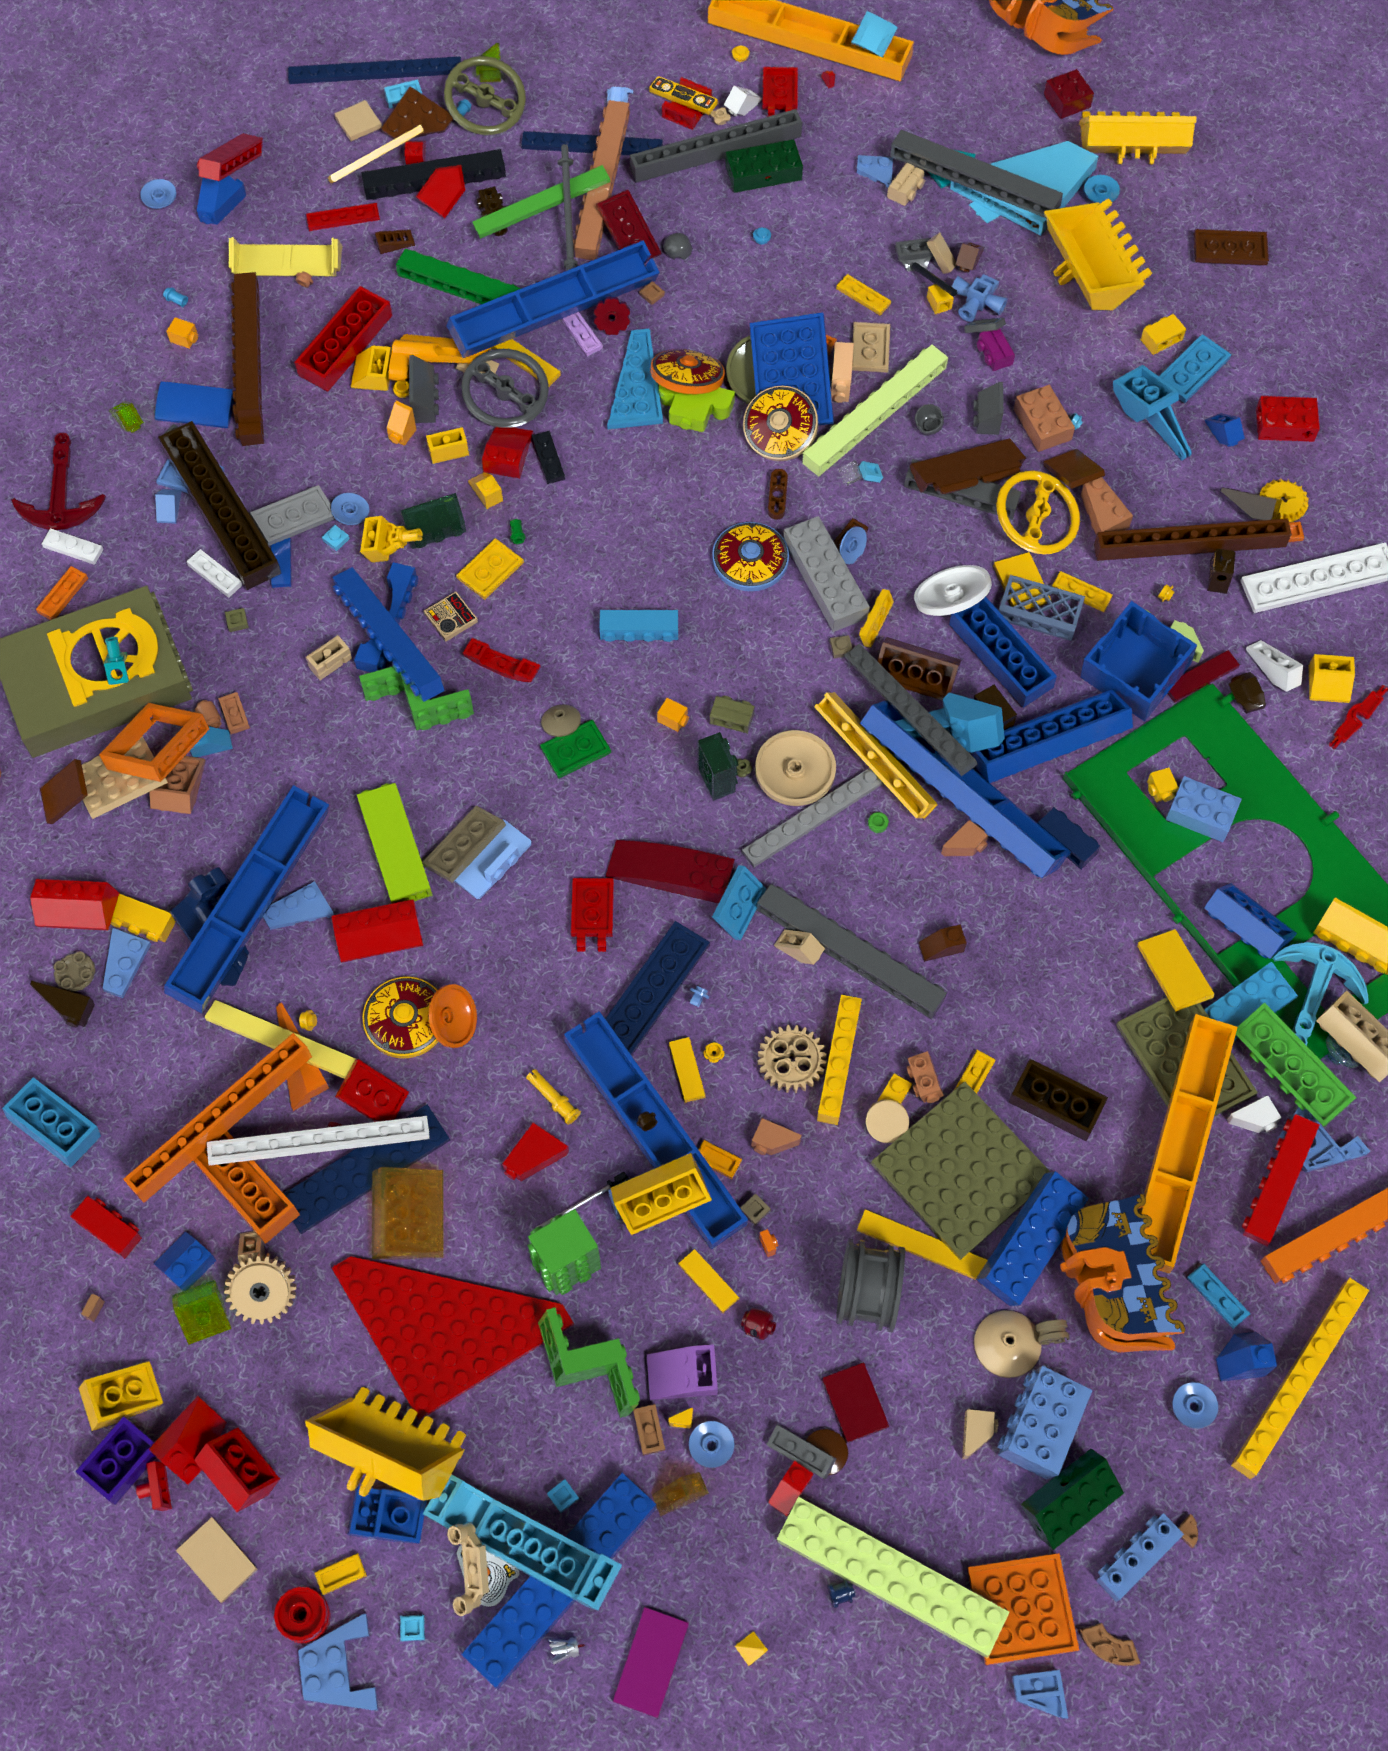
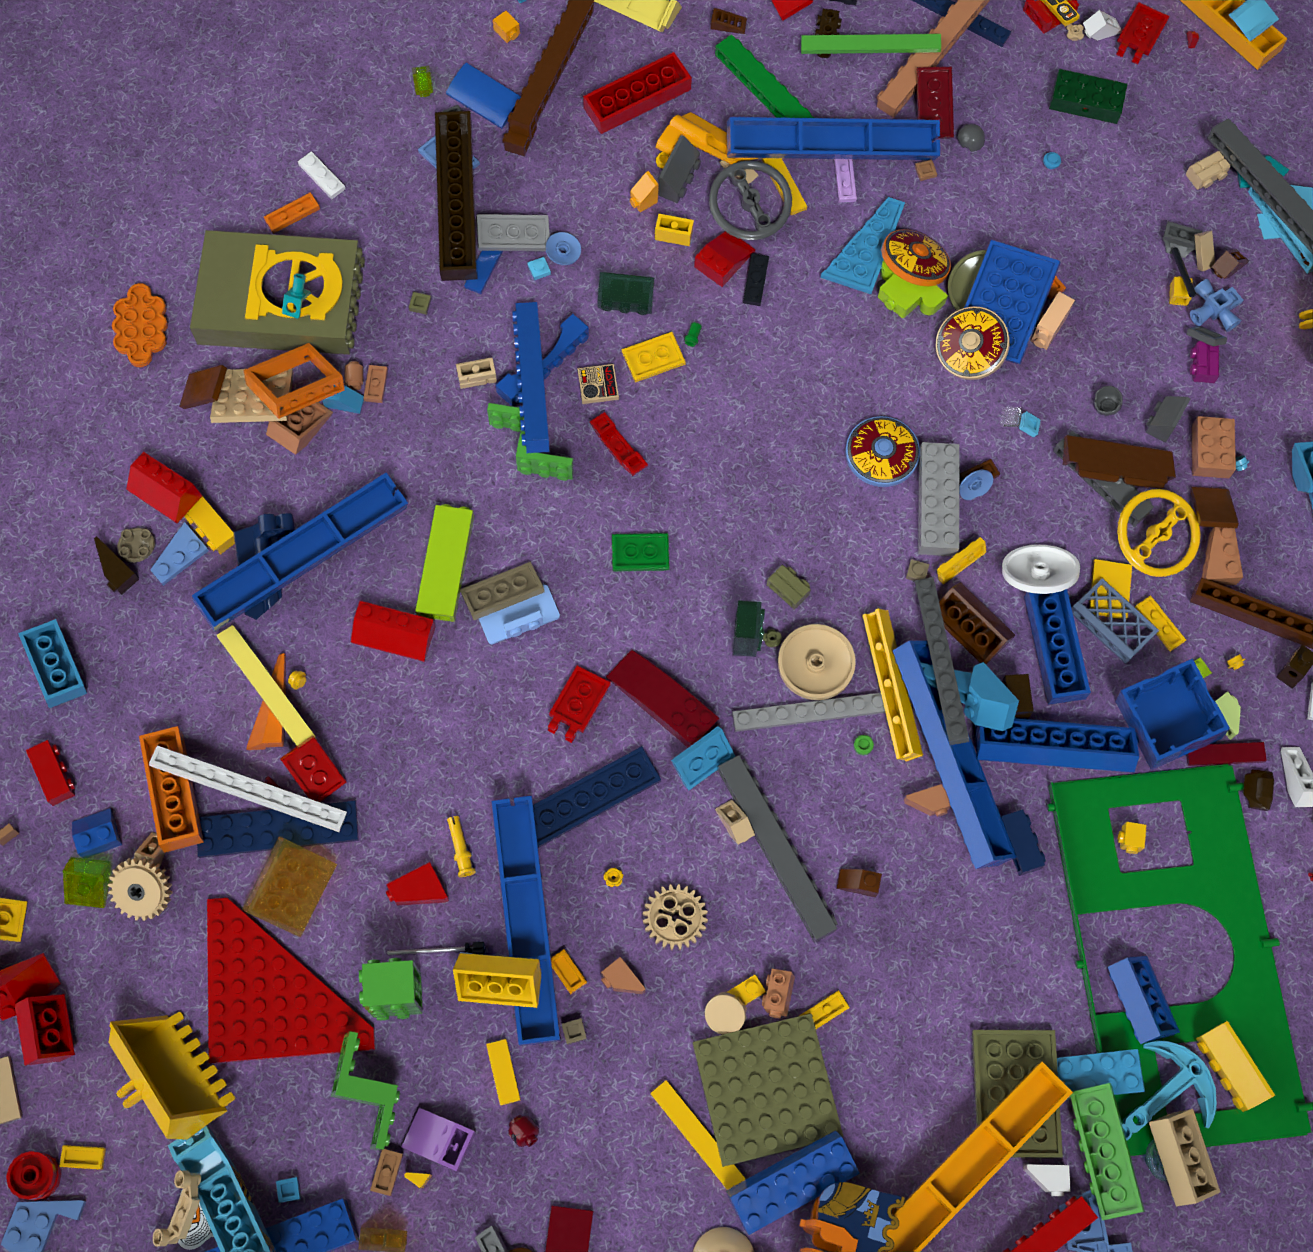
camera: 25 degrees right, 5 degrees up
(58, 498) = (330, 129): dark red piece -> none
(167, 505) = (416, 174): medium blue slope -> none
(214, 573) = (423, 253): white plate -> none
(218, 1117) = (177, 729): orange brick -> none
(300, 906) = (341, 578): medium blue wing -> none
(304, 279) = (633, 23): nougat plate -> none
(372, 369) = (646, 131): yellow slope -> none
(384, 538) = (577, 289): yellow brick -> none
(387, 1516) = (139, 1132): blue slope -> none
(399, 1017) = (376, 716): dish -> none
(412, 1628) = (114, 1232): medium azure tile -> none
(452, 1016) = (418, 741): orange dish -> none
(486, 489) = (687, 284): yellow slope -> none
(561, 720) = (641, 526): dark tan dish -> none
(565, 162) = (868, 111): dark grey bar -> none
(609, 323) = (877, 176): dark red plant -> none
(639, 625) = (751, 468): dark azure brick -> none
(646, 1121) = (519, 911): dark brown plate -> none
(673, 715) = (737, 562): light orange brick -> none
(687, 1070) = (583, 880): yellow tile -> none
(698, 995) = (628, 820): medium blue plate -> none
(711, 1432) = (419, 1208): medium blue dish -> none
(714, 145) = (1054, 57): dark grey brick -> none
(768, 1242) = (569, 1066): orange plate -> none
(778, 500) = (936, 413): reddish brown beam -> none
(839, 1060) = (714, 938): yellow arch -> none
(863, 294) = (1113, 256): yellow tile -> none
(870, 1285) = (628, 1151): dark grey wheel -> none
(871, 347) = (1093, 308): tan tile -> none
(874, 410) = (1065, 368): yellowish green brick -> none
(876, 168) = (1189, 143): medium blue wing -> none
(1058, 1100) = (882, 1072): dark brown brick -> none
(1175, 970) = (1051, 1010): yellow tile -> none
(1203, 809) = (1157, 877): medium blue brick -> none

